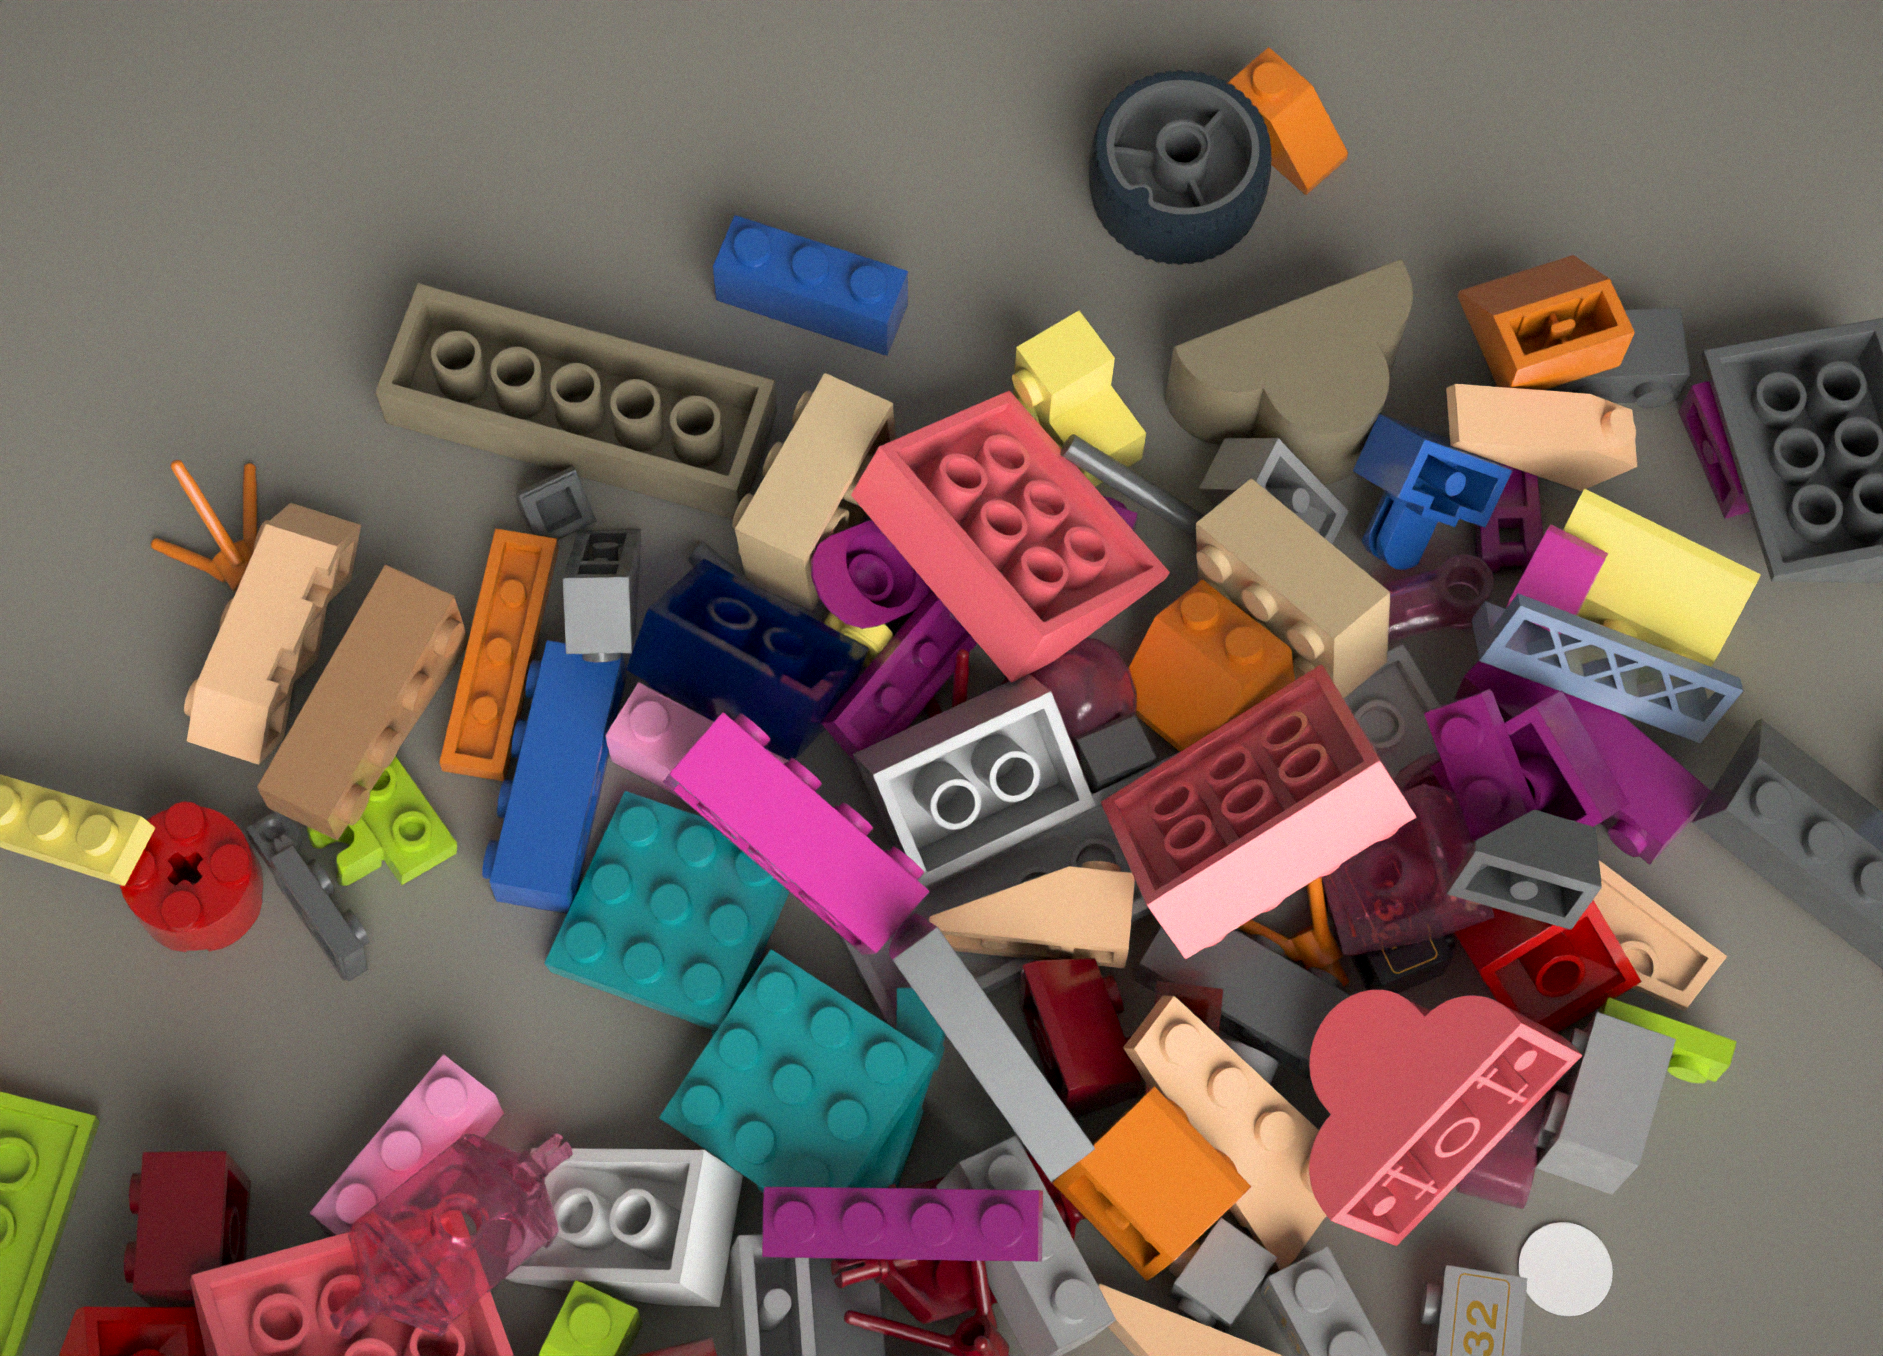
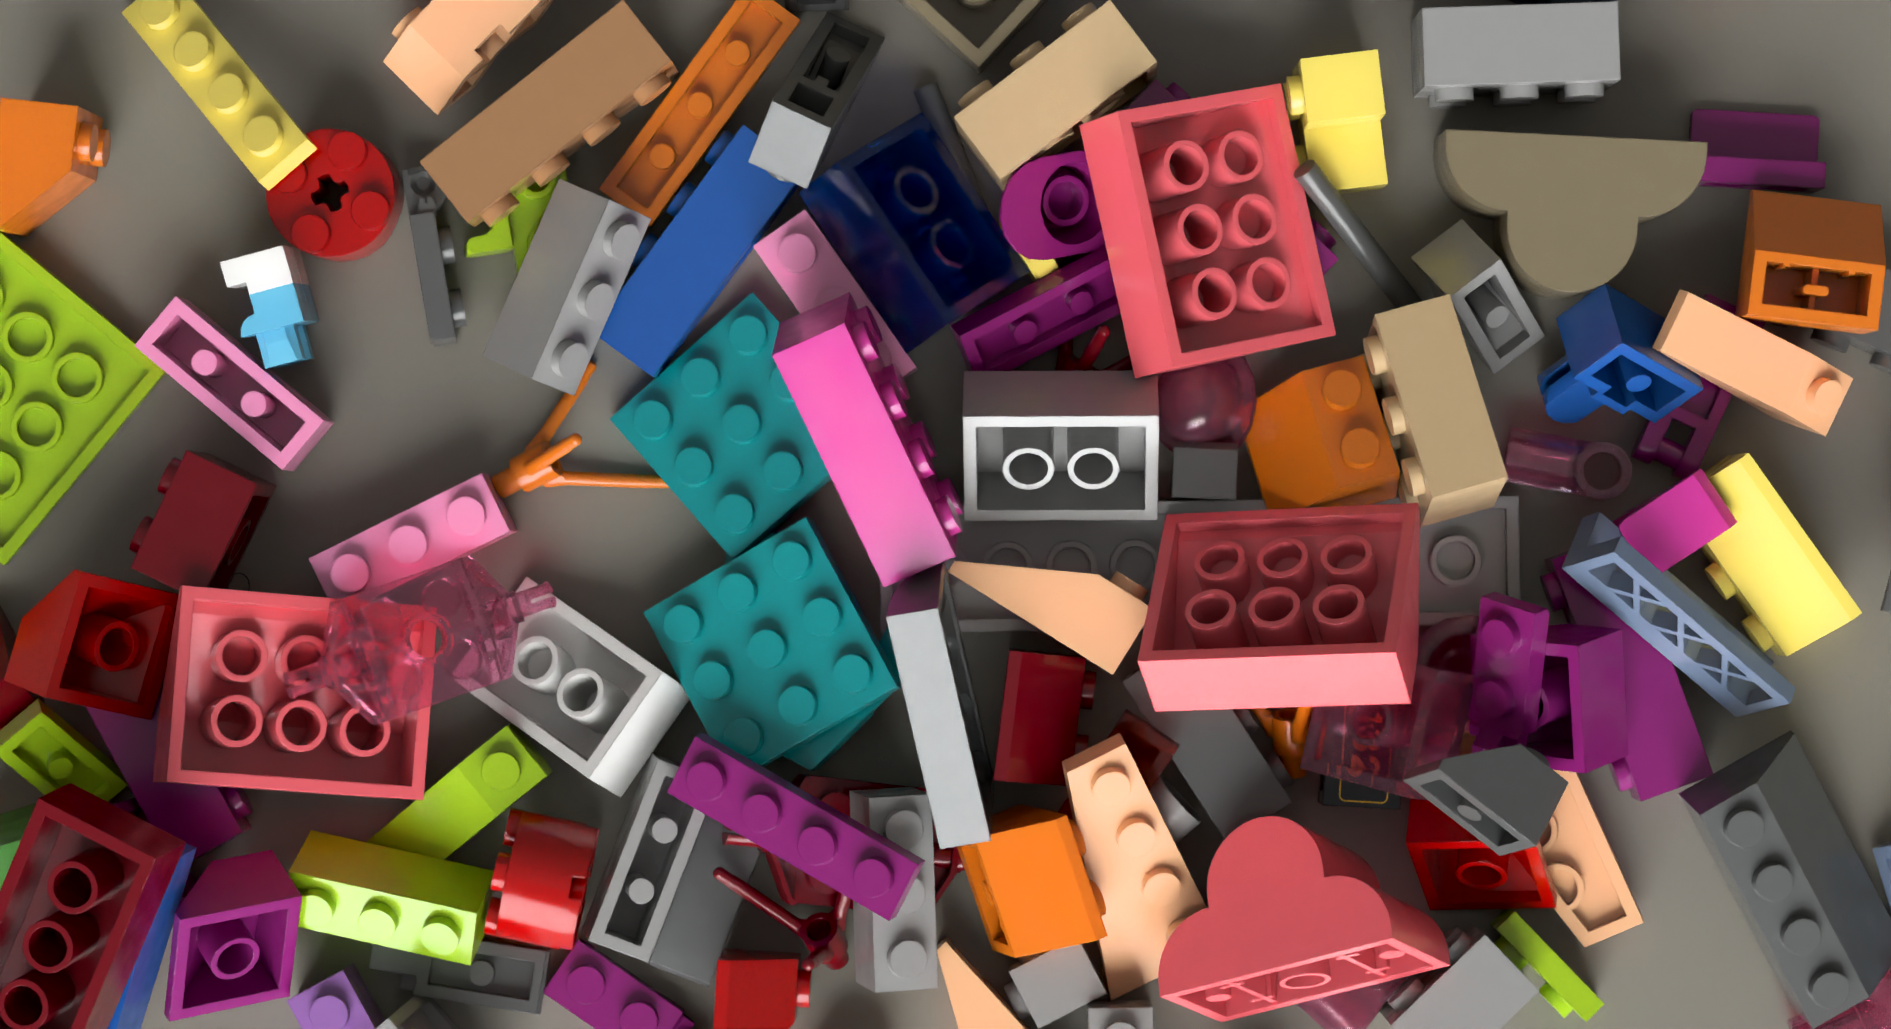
camera: 25 degrees right, 20 degrees up
(167, 1090) = (234, 384): none -> bright pink brick
(179, 998) = (279, 301): none -> medium azure hips
(448, 850) = (566, 287): none -> light grey brick
(496, 1037) = (541, 462): none -> orange plant
(1194, 279) = (1515, 53): none -> light grey brick
(1441, 276) = (1759, 150): none -> magenta panel

